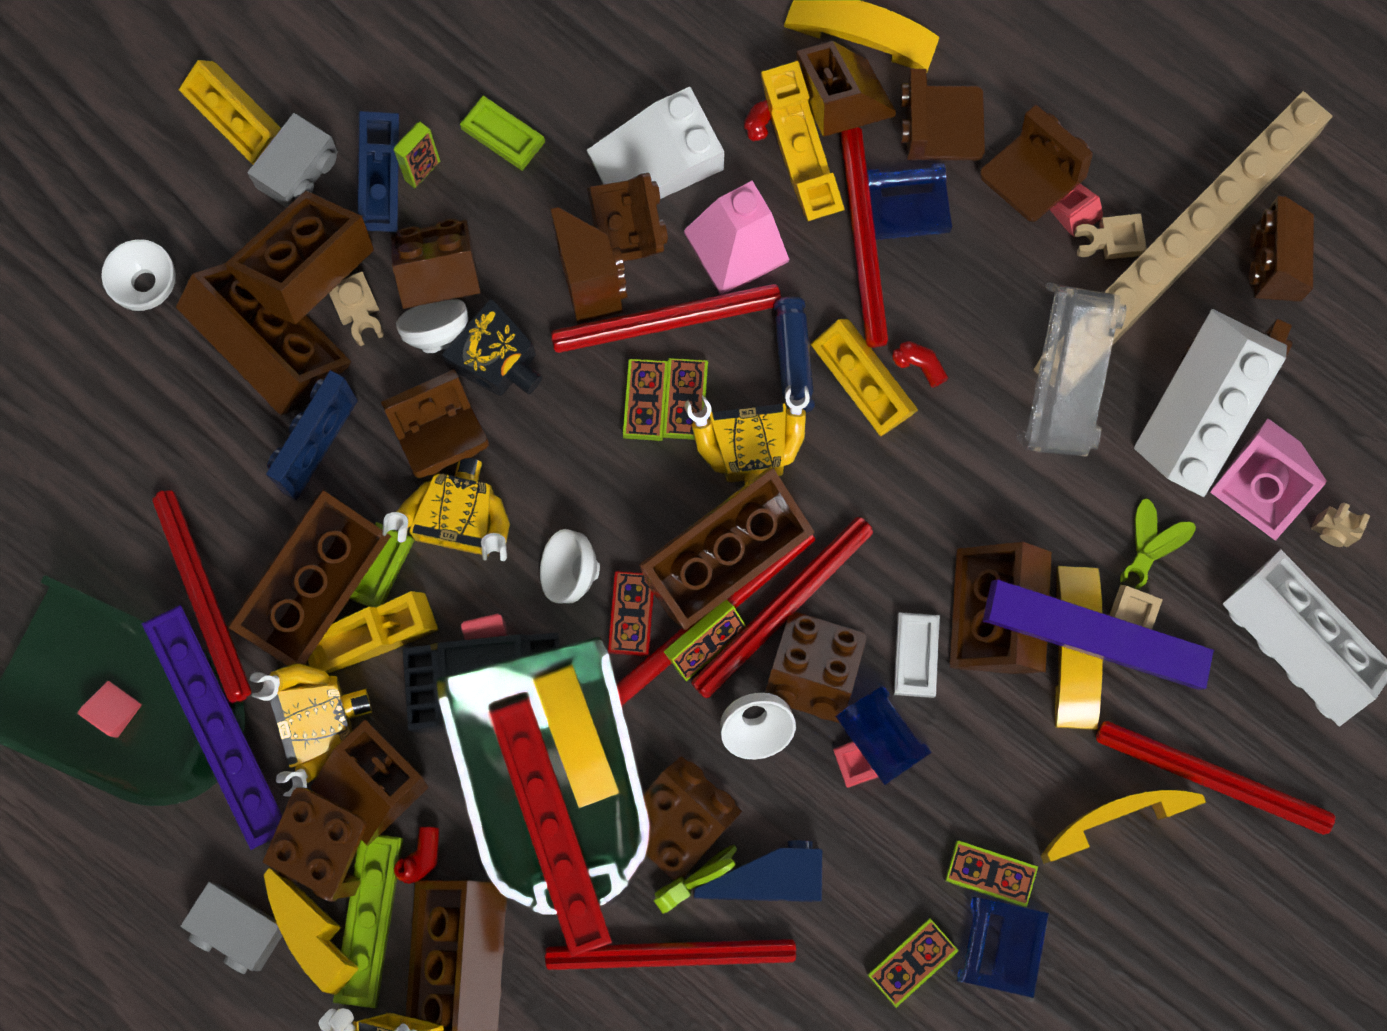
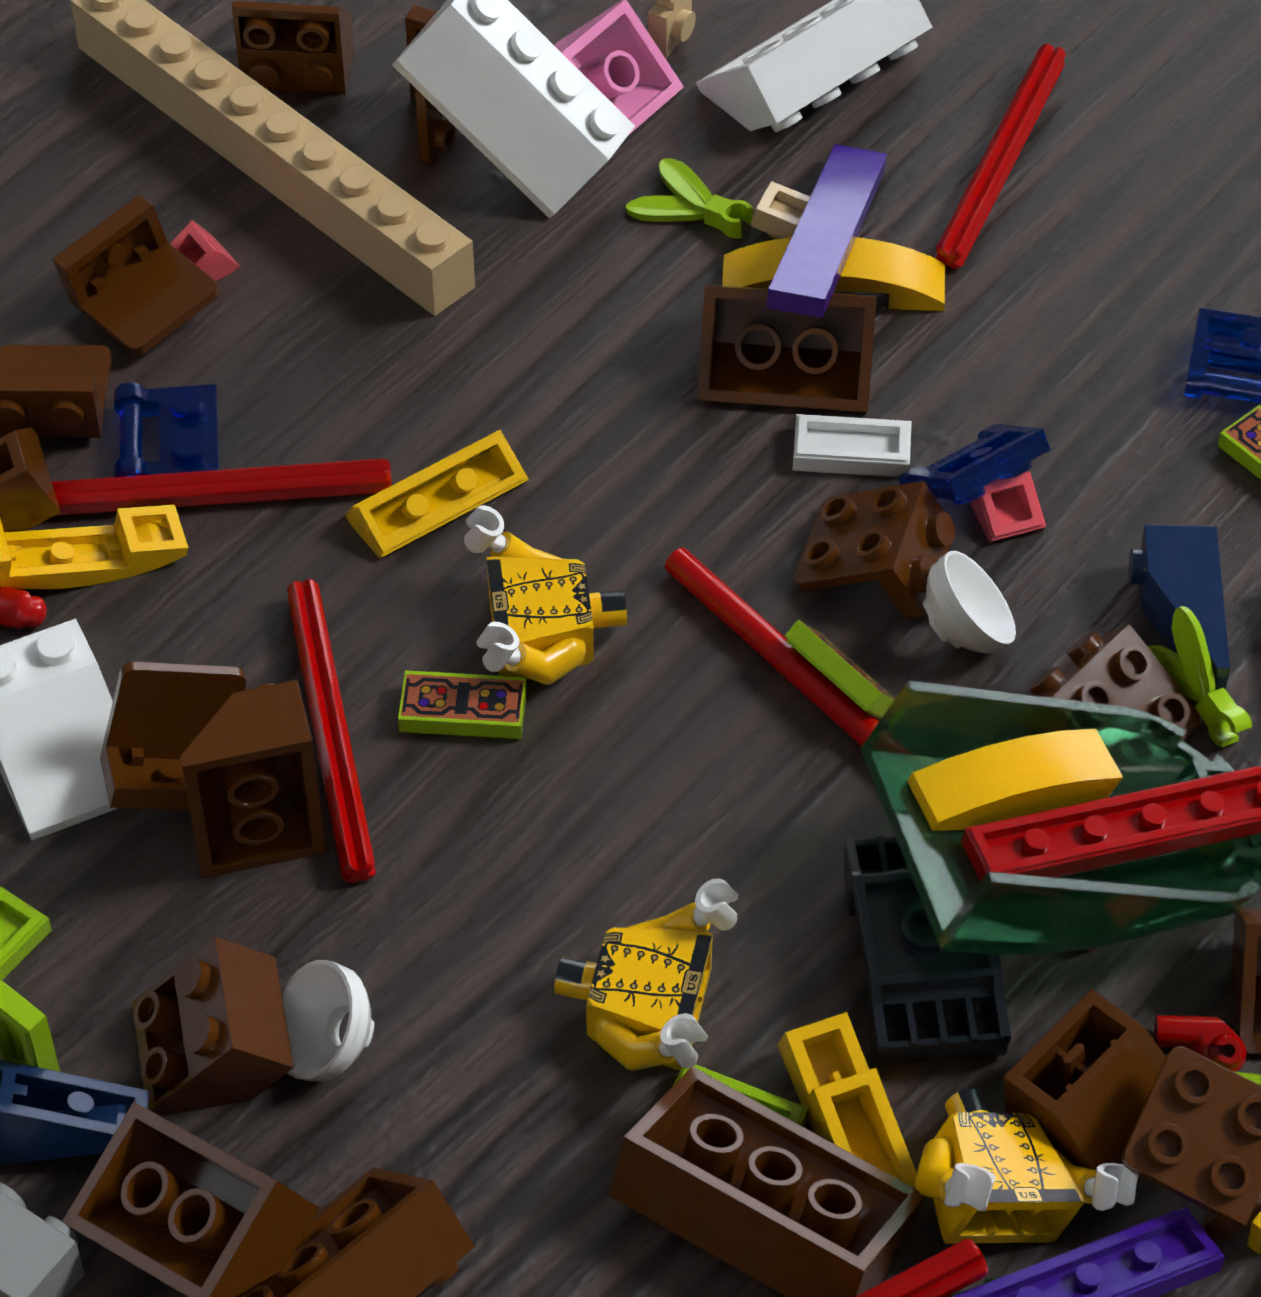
camera: 90 degrees left, 25 degrees down
(311, 435) = (520, 1183): dark blue plate -> none
(356, 303) = (287, 1155): tan plate -> none
(435, 424) = (509, 1013): reddish brown bracket -> none
(484, 627) = (840, 955): coral slope -> none
(493, 353) = (381, 936): black torso -> none
(568, 567) = (746, 862): white piece -> none
(630, 615) = (802, 772): tile -> none
(645, 399) = (461, 754): tile -> none
(726, 549) = (720, 625): reddish brown slope -> none
(737, 239) = (208, 620): bright pink slope -> none
(781, 607) = (786, 587): red axle -> none
(794, 349) = (399, 567): dark blue axle -> none
(922, 357) = (420, 420): red arm -> none
(991, 874) = (1150, 375): tile -> none
(1073, 371) = (477, 197): clear windscreen -> none
(1117, 235) = (250, 214): tan plate -> none
(1164, 803) = (1091, 282): yellow slope -> none

